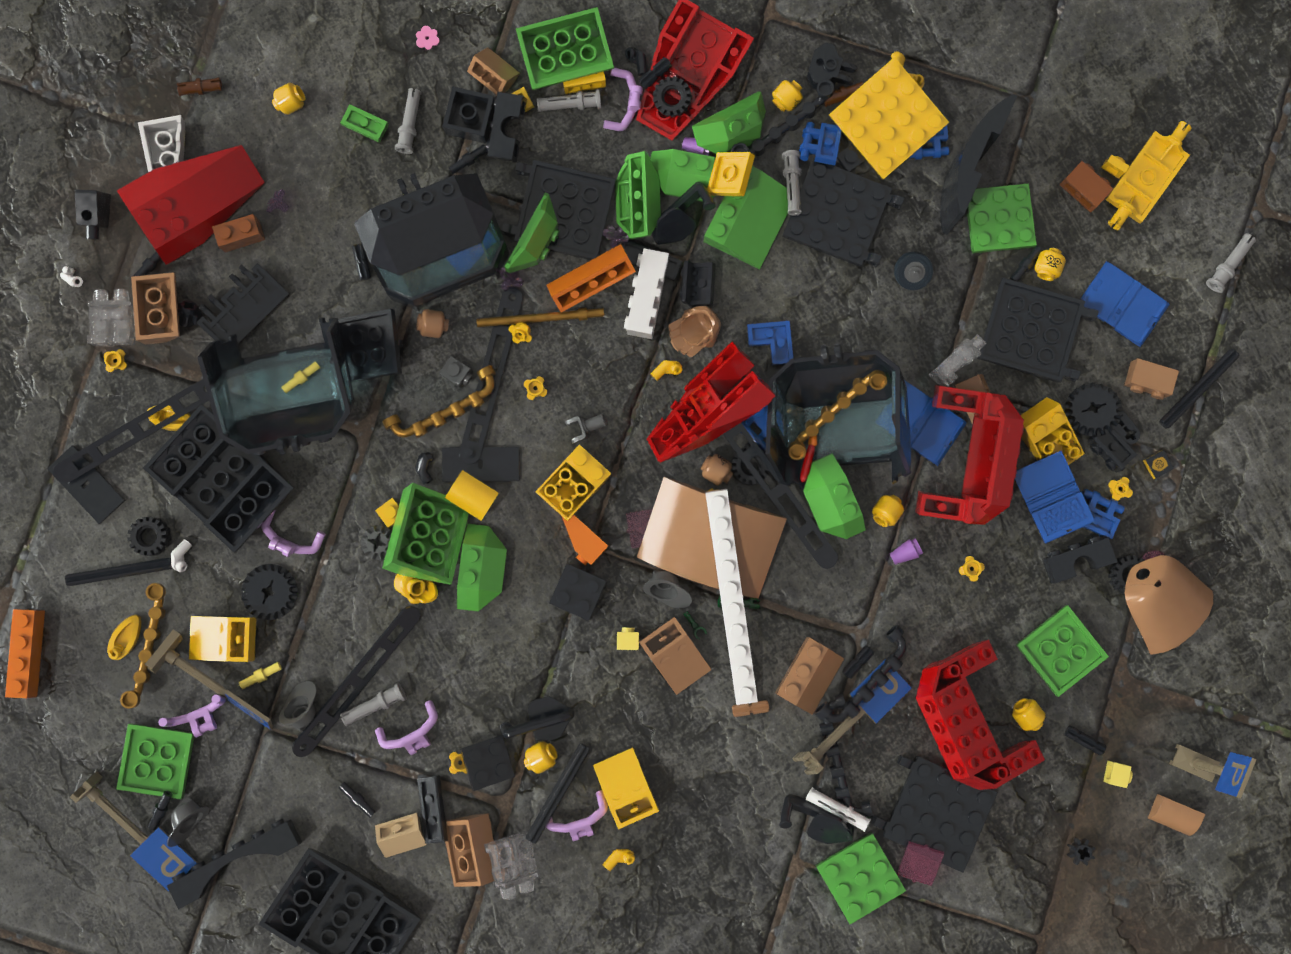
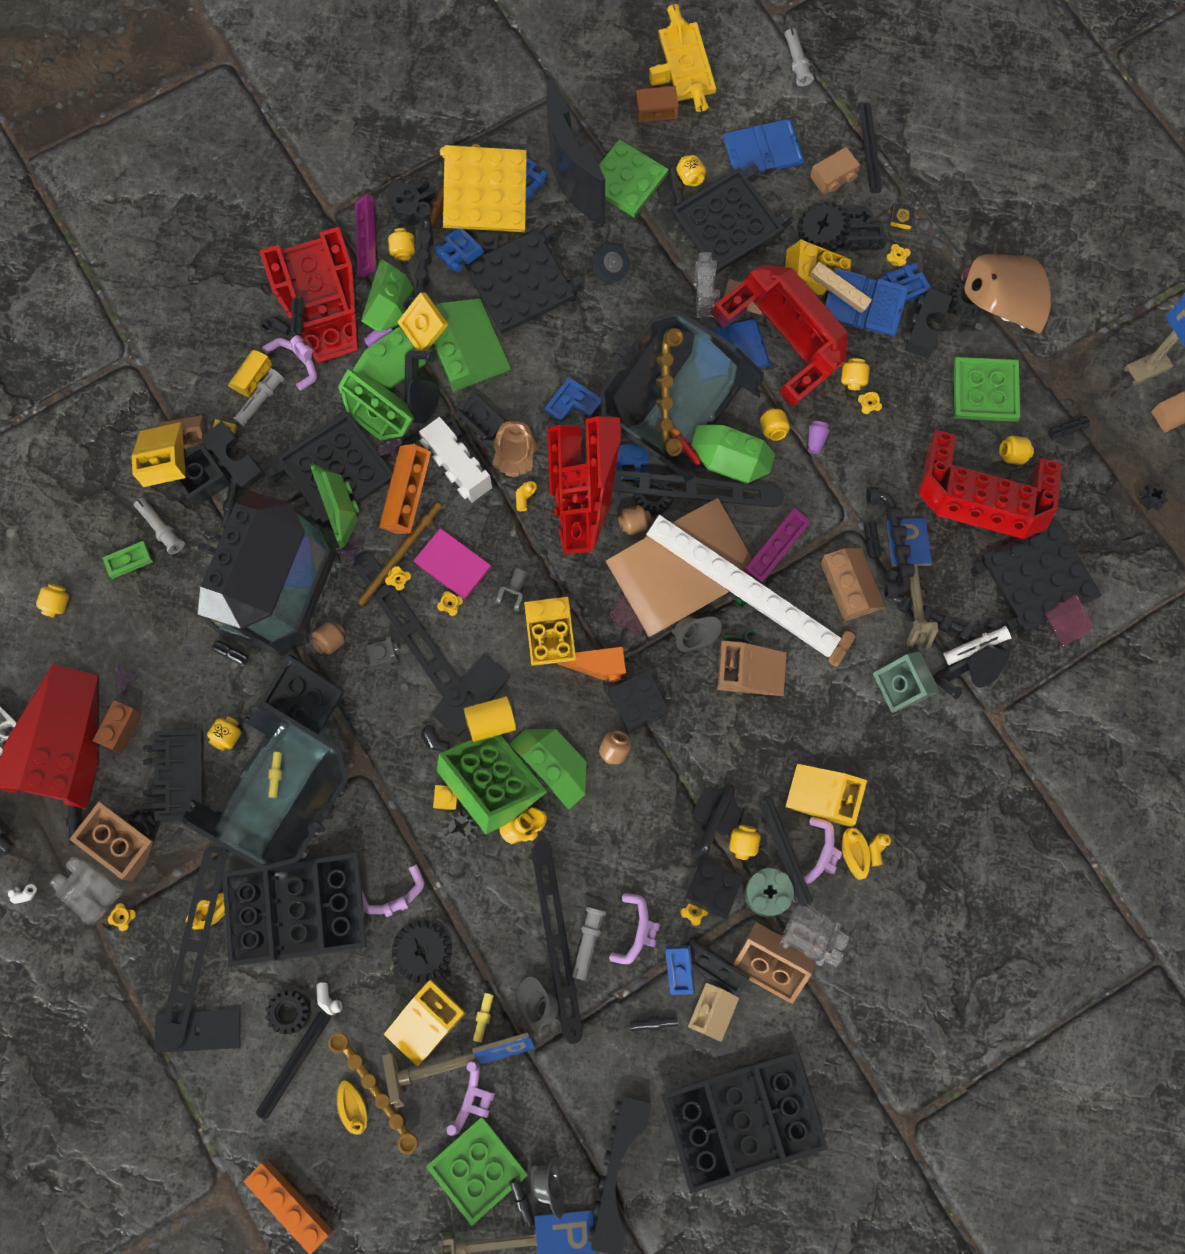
camera: 45 degrees left, 10 degrees down
(299, 313) = (224, 733): none -> yellow head
(408, 787) = (680, 970): none -> blue plate
(425, 33) = (106, 457): bright pink plant -> none
(438, 418) = (406, 696): pearl gold bar -> none
(456, 74) = (159, 455): none -> yellow slope
(516, 818) = (778, 882): none -> sand green brick
(529, 604) = (615, 747): none -> medium nougat head
(564, 48) = (215, 365): bright green slope -> none
(566, 363) = (452, 564): none -> dark pink tile
(602, 844) = (856, 853): none -> yellow arm
(628, 639) = (708, 695): light yellow plate -> none
(663, 87) = (317, 310): black tyre -> none
(764, 778) = (906, 681): none -> sand green slope
(770, 61) = (365, 235): none -> magenta plate
(788, 594) = (776, 545): none -> magenta plate
(792, 173) = (461, 287): light grey pin -> none
(860, 878) = (1044, 675): bright green plate -> none
(985, 538) = (855, 374): none -> yellow head
(1045, 468) = (840, 287): none -> tan piece
(1118, 774) = (1114, 424): light yellow plate -> none

